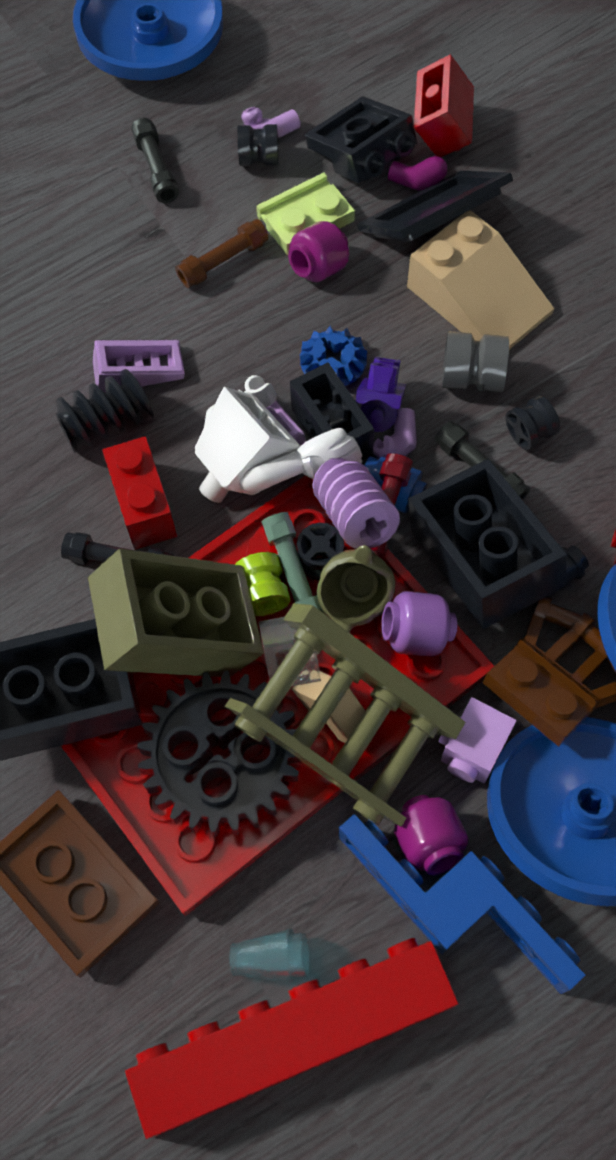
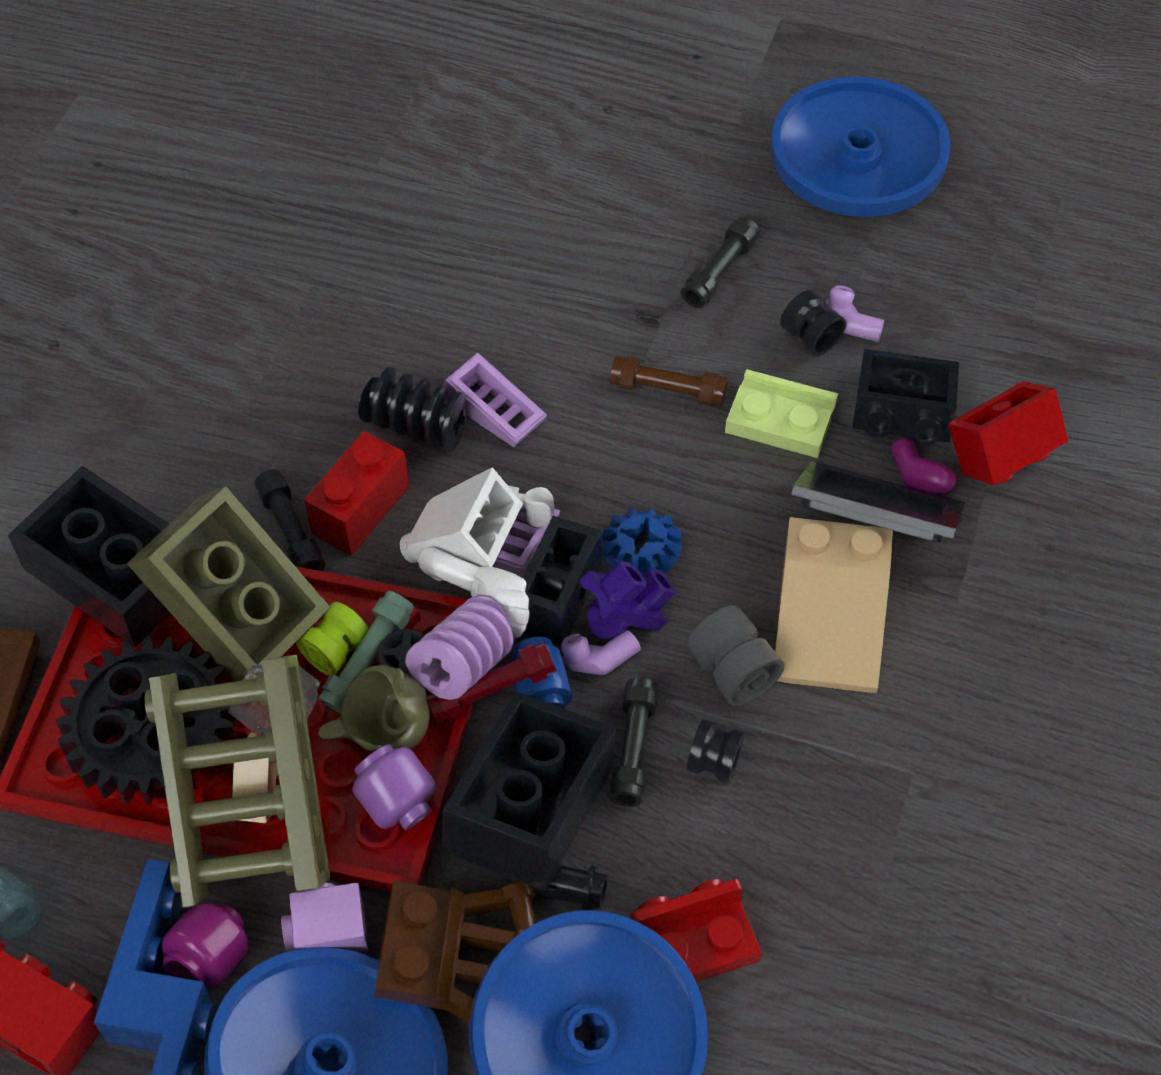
camera: 50 degrees right, 10 degrees down
(318, 251) = (740, 450): magenta head -> none

